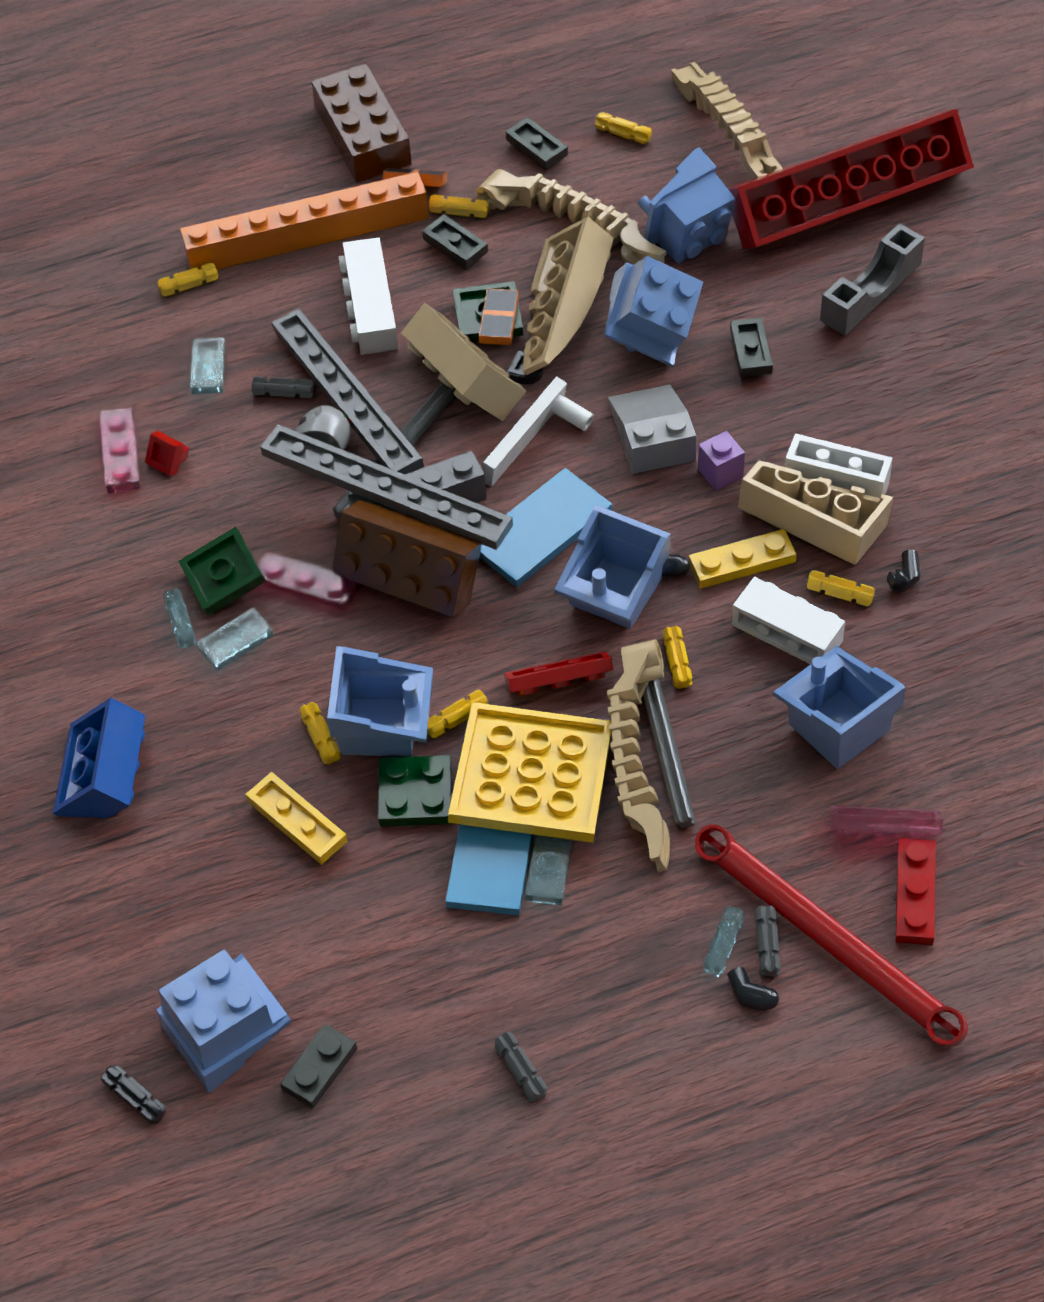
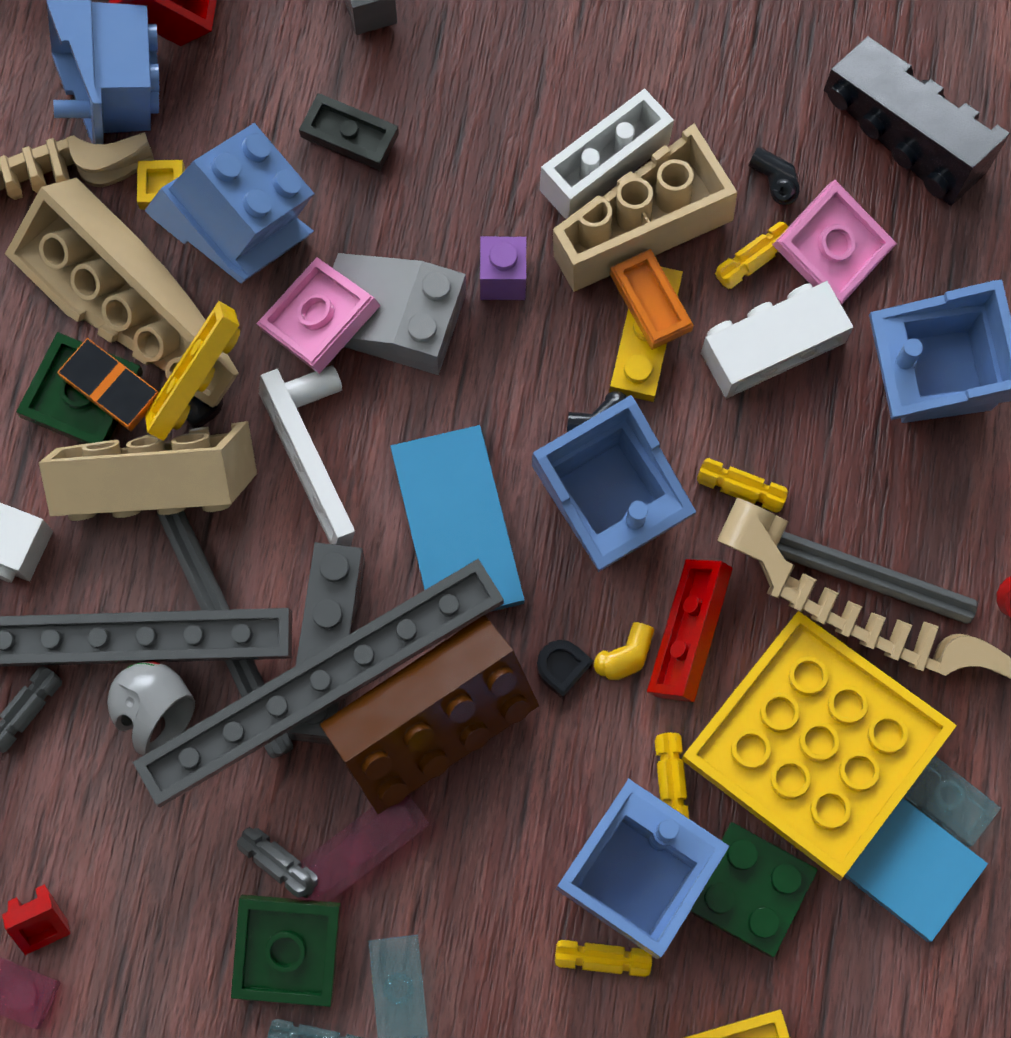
camera: 65 degrees left, 20 degrees up
(270, 540) = (277, 862): none -> dark grey axle
(489, 624) = (562, 666): none -> black tile
(519, 653) = (626, 659): none -> yellow arm
(529, 337) = (193, 371): none -> yellow plate
(618, 388) = (318, 315): none -> bright pink tile
(759, 540) = (651, 299): none -> orange tile
(881, 623) = (834, 242): none -> bright pink tile
(1003, 621) = (914, 120): none -> wedge

